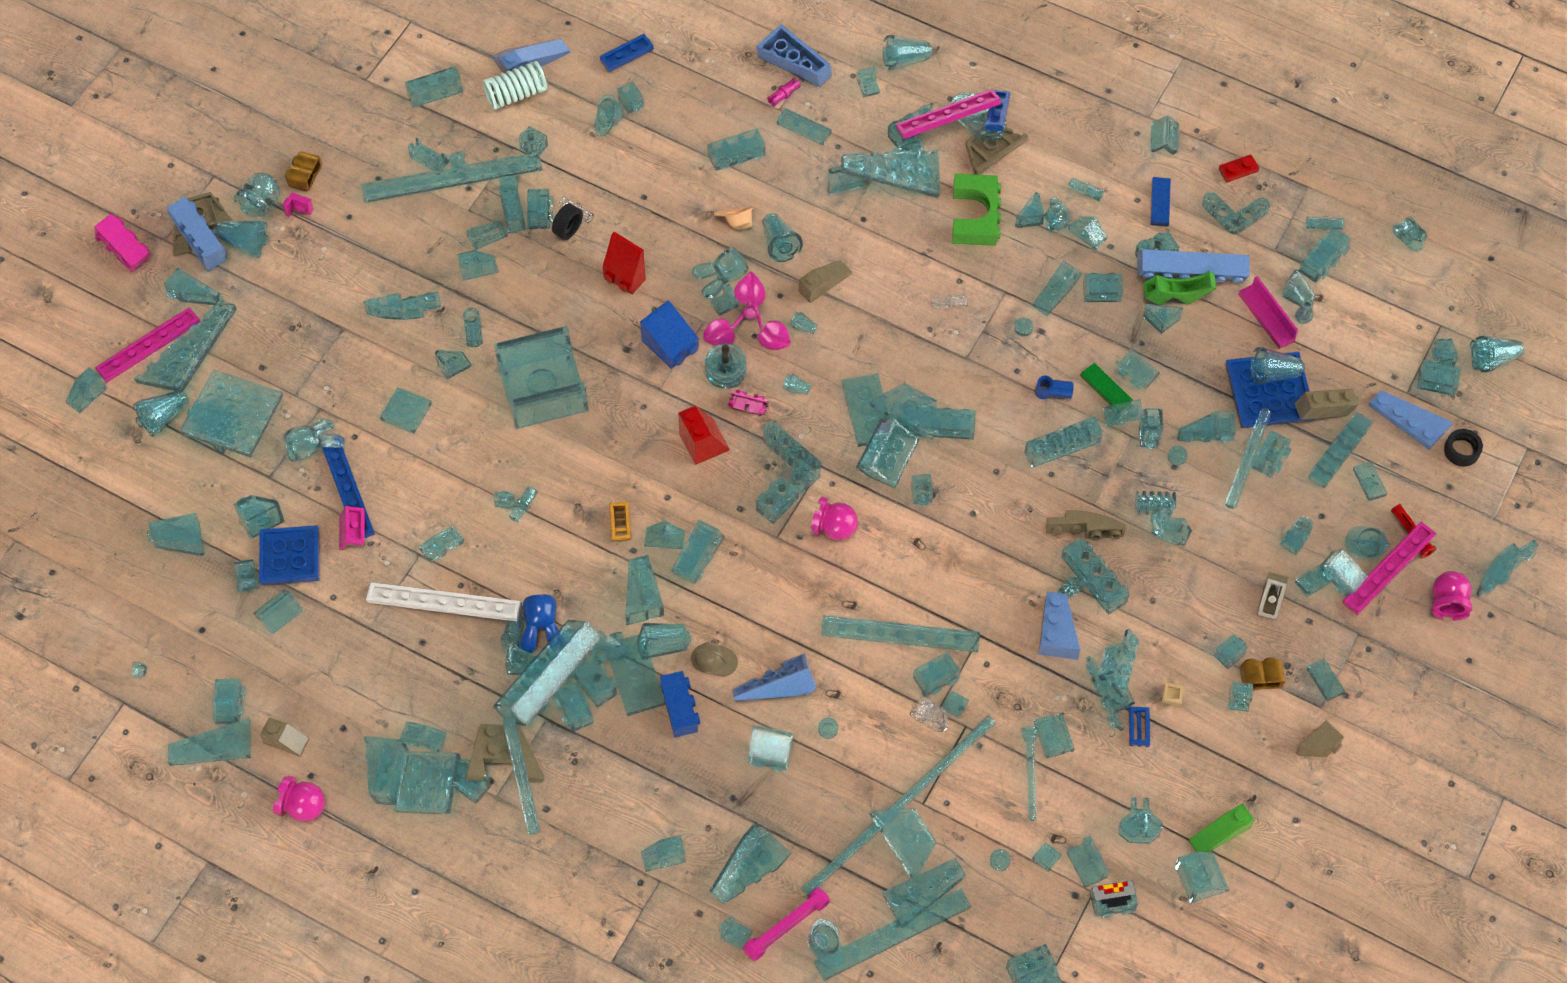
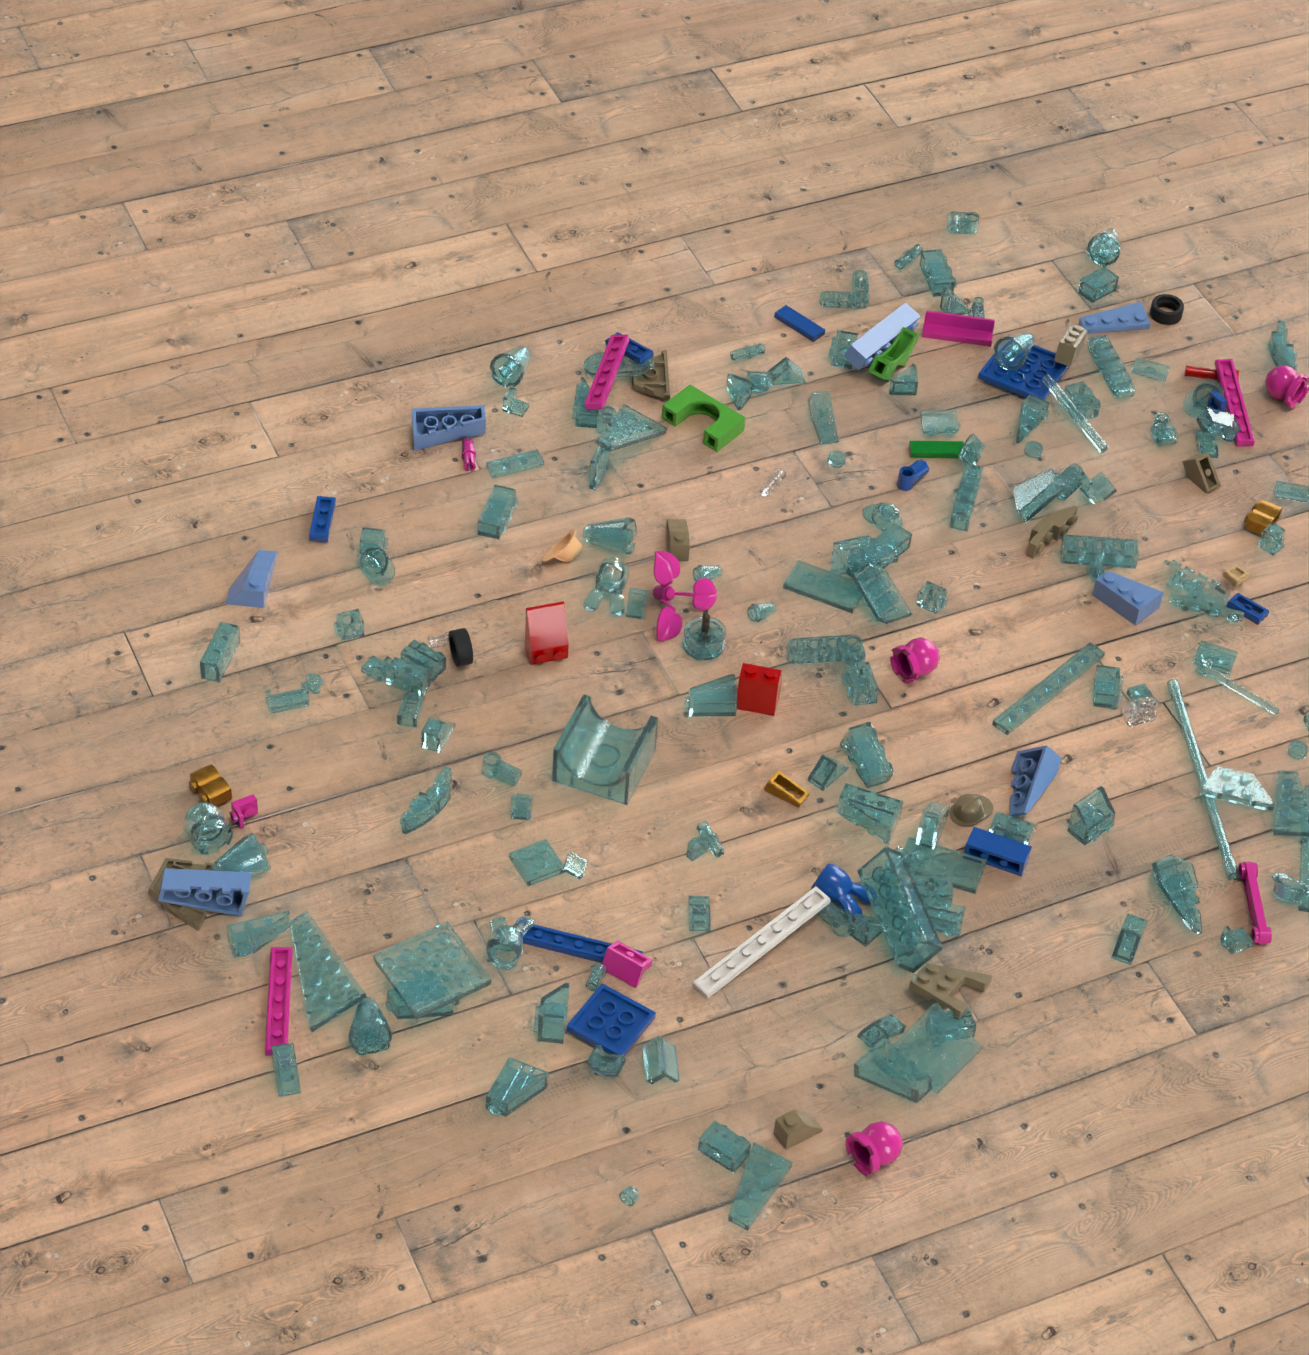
camera: 55 degrees left, 15 degrees down
(121, 242) = (149, 952): dark pink wedge -> none
(325, 517) = (597, 972): none -> clear light blue pin
(420, 435) = (575, 865): none -> clear light blue tile
(451, 177) = (325, 697): clear light blue plate -> none
(519, 90) = (281, 599): light aqua piece -> none
(521, 775) = (981, 983): clear light blue axle -> none
(664, 411) = (713, 698): none -> clear light blue slope
(668, 335) = (641, 653): blue slope -> none
(714, 700) = (1013, 827): none -> clear light blue slope
(755, 403) = (743, 650): dark pink hinge -> none
(828, 728) = (1096, 778): clear light blue tile -> none
(987, 400) = (882, 515): none -> clear light blue piece
(1102, 287) = (848, 395): clear light blue brick -> none
(1111, 488) = (1037, 493): none -> clear light blue slope
(1151, 428) = (1003, 442): clear light blue brick -> none
(1165, 135) = (742, 285): clear light blue panel -> none
(1230, 651) = (1229, 521): clear light blue brick -> none
(1238, 168) = (812, 268): red plate -> none
(1366, 556) = (1216, 401): none -> blue plate
(1445, 352) = (1080, 268): clear light blue brick -> none

